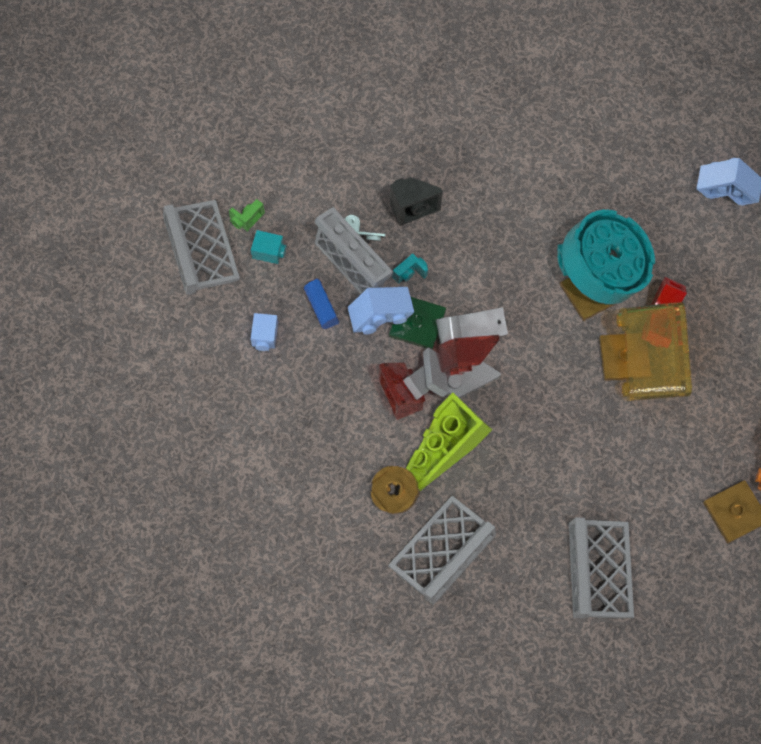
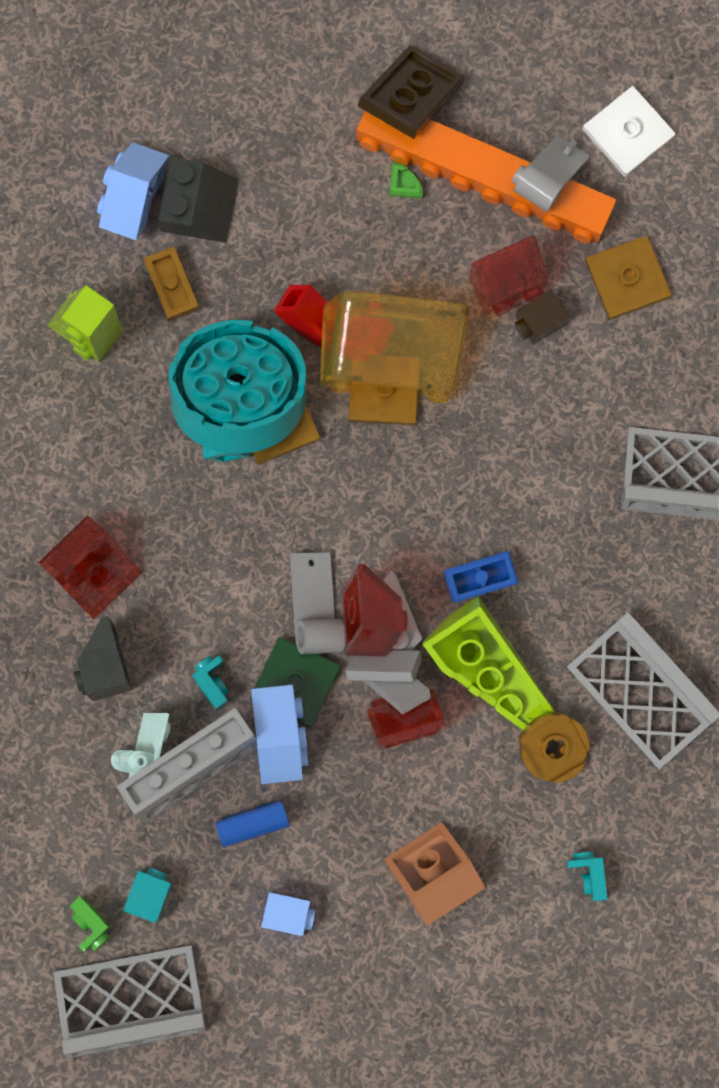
camera: 85 degrees left, 10 degrees up
(299, 421) = (434, 873): none -> nougat slope
(307, 526) = (594, 881): none -> teal bracket
(474, 189) = (90, 567): none -> clear red slope
(506, 430) = (480, 577): none -> blue brick
(632, 162) = (87, 323): none -> lime wedge
(671, 215) = (171, 283): none -> pearl gold plate
(695, 452) = (541, 317): none -> dark brown brick
(719, 424) = (509, 276): none -> clear red slope
(731, 223) = (197, 200): none -> pearl dark grey slope

